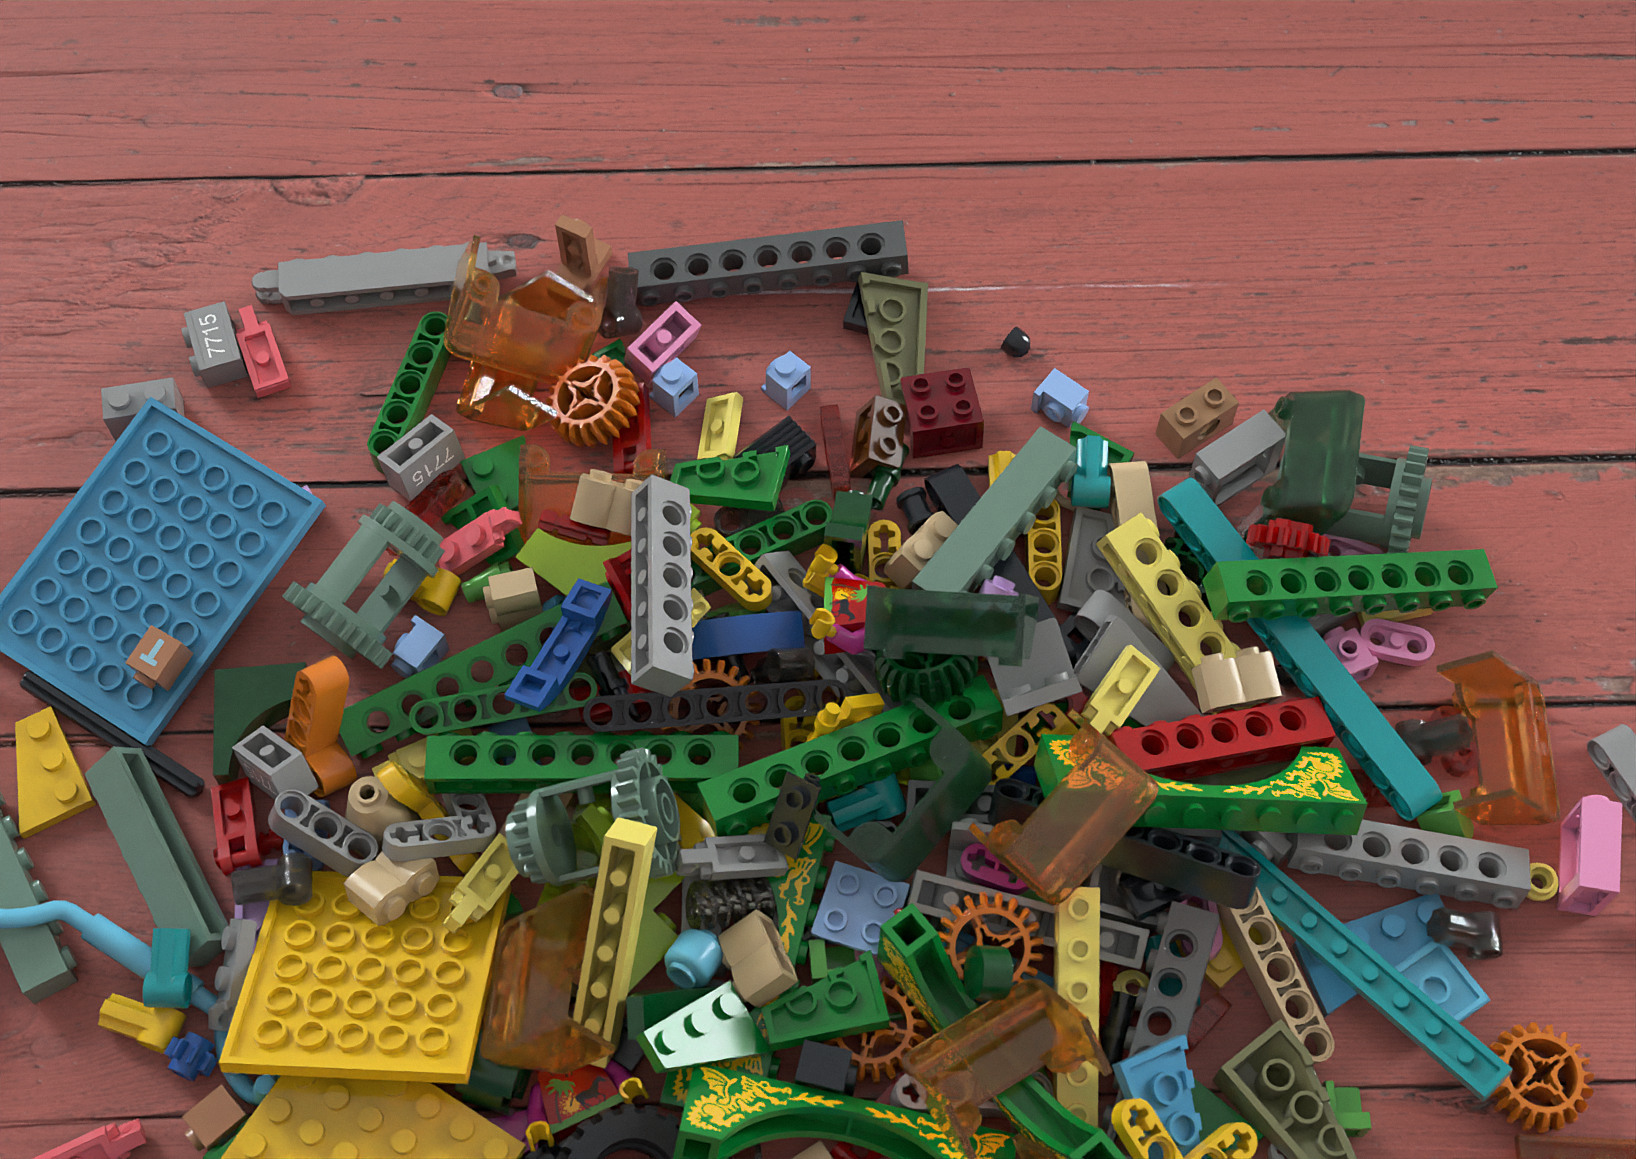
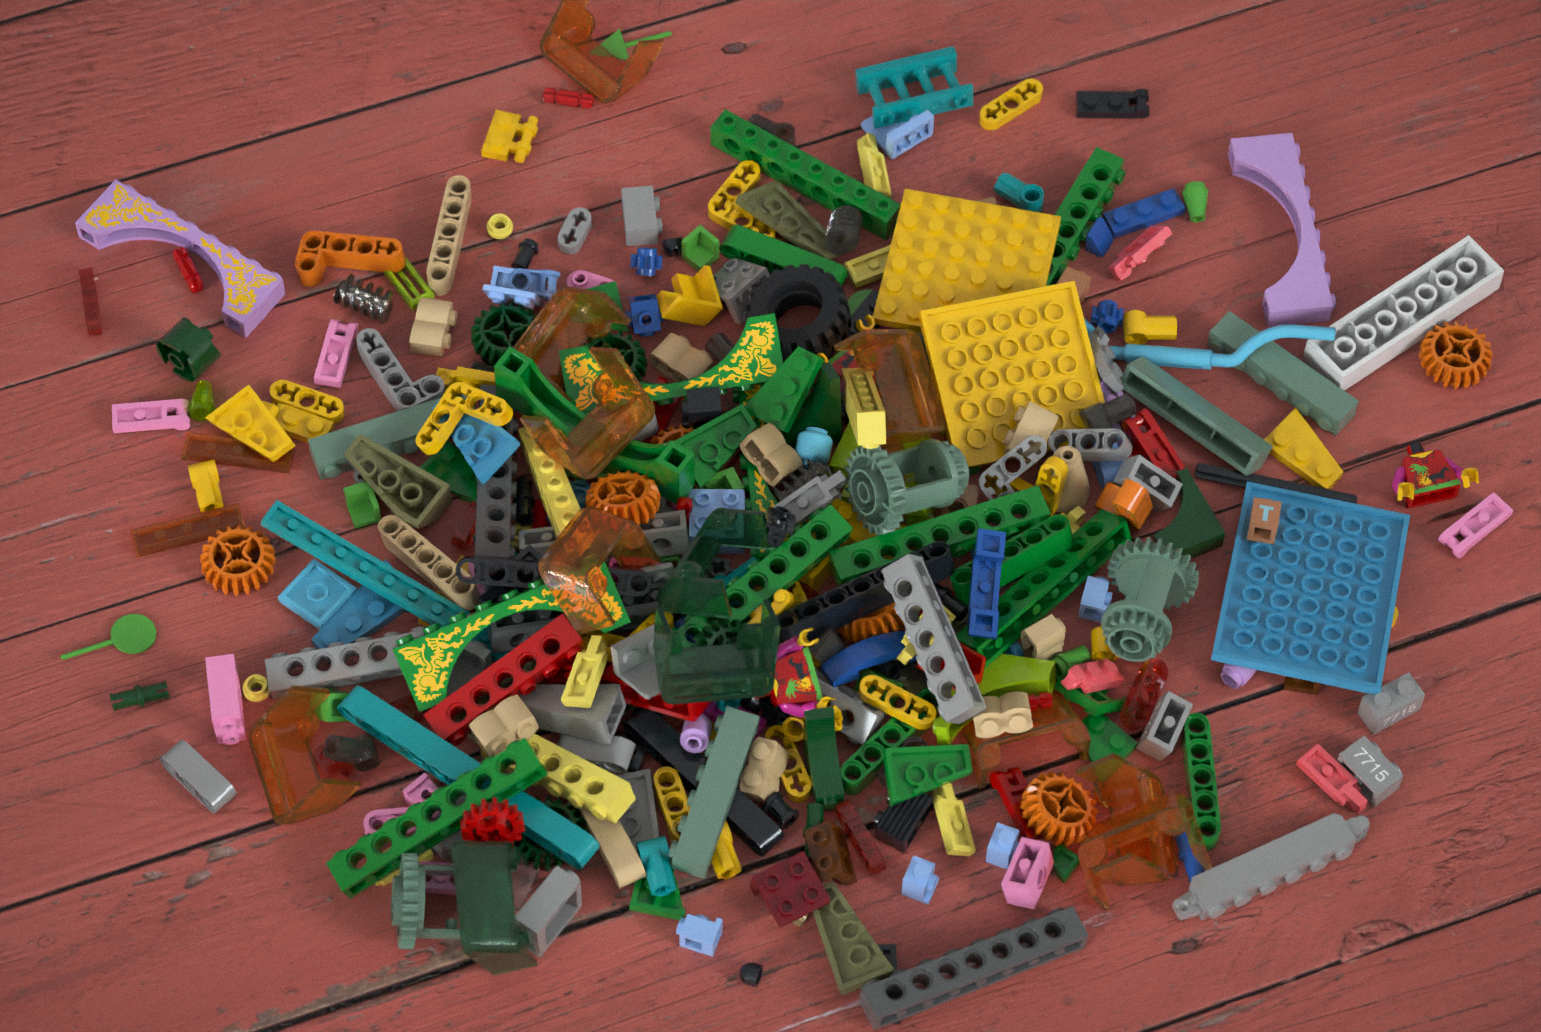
camera: 160 degrees right, 5 degrees down
(168, 981) = (1142, 340): teal piece -> none
(482, 885) = (971, 442): light yellow hinge -> none
(580, 252) = (1126, 929): nougat bracket -> none
(621, 314) = (1073, 889): clear smoke piece -> none
(988, 972) = (616, 464): dark green piece -> none
(1196, 418) = (588, 948): medium nougat brick -> none
(1475, 932) = (294, 634): clear smoke piece -> none

